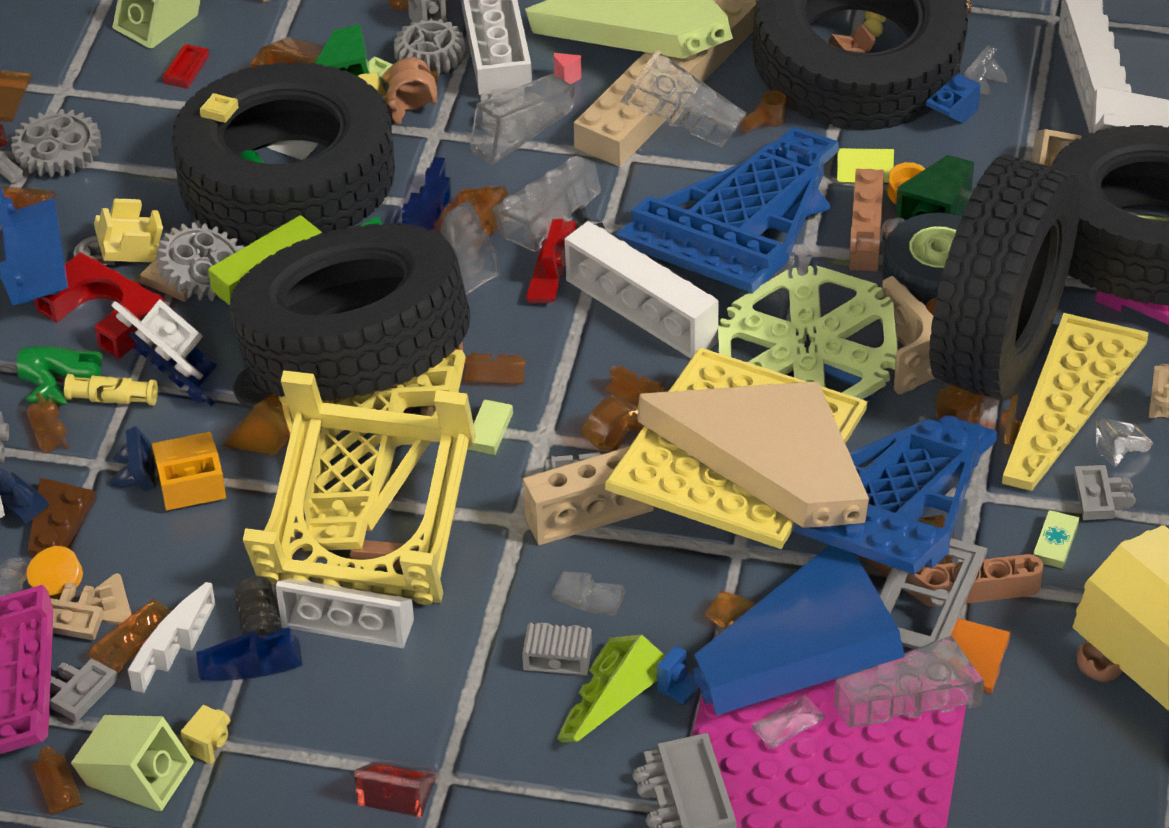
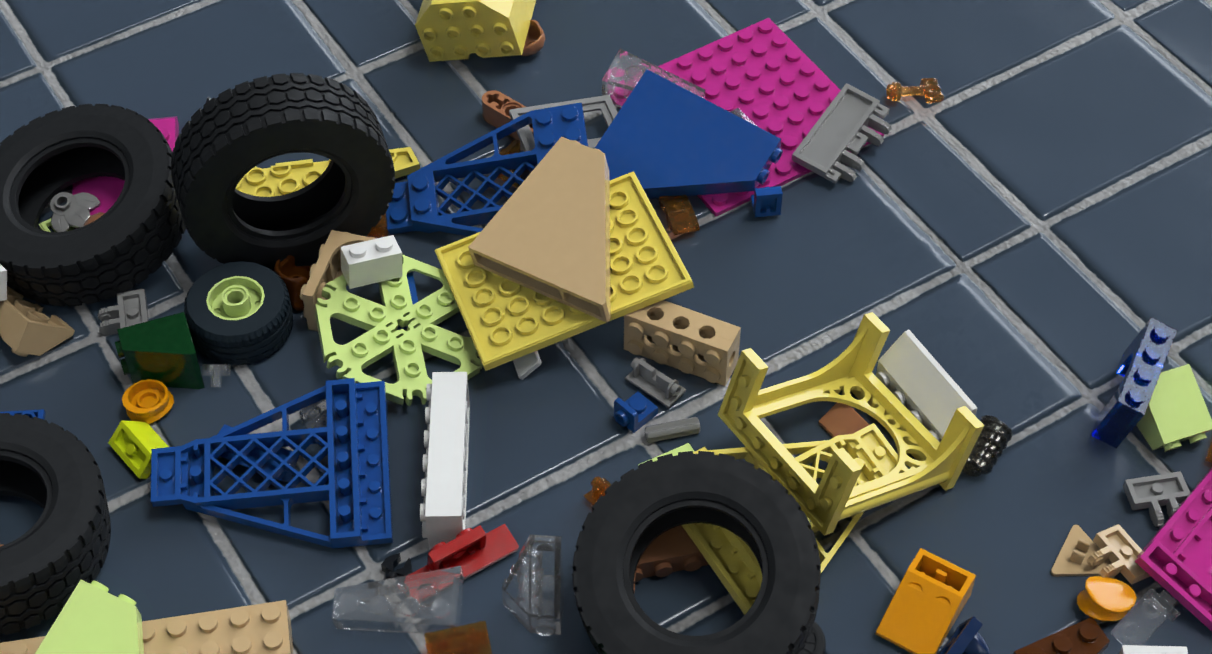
camera: 135 degrees left, 5 degrees up
(129, 636) = (1087, 505): clear orange plate -> none
(166, 723) = (1141, 370): none -> clear blue arch
(176, 631) = (1051, 480): white slope -> none
(205, 733) = (1095, 391): light yellow brick -> none
(250, 656) = (1027, 426): clear blue slope -> none
(262, 429) = (838, 601): clear orange slope -> none
(393, 788) = (1005, 270): clear red slope -> none
(520, 450) = (672, 429): none -> light grey axle
(557, 649) = (815, 274): light grey brick -> none
(565, 435) = (634, 411): none -> blue bracket
(585, 594) = (748, 299): clear slope -> none
(611, 422) = (595, 379): clear orange brick -> none
(619, 675) = (804, 231): lime wedge -> none
(629, 386) = (541, 405): clear orange hinge -> none
(683, 100) = (200, 587): clear wedge -> none
(769, 111) = (135, 551): clear orange axle -> none
(866, 220) = (223, 389): nougat hinge -> none
(877, 327) = (371, 261): none -> white brick
(983, 648) = (579, 88): orange slope -> none
(1056, 538) = (443, 119): yellowish green tile -> none
(1100, 494) = (390, 115): light grey hinge -> none

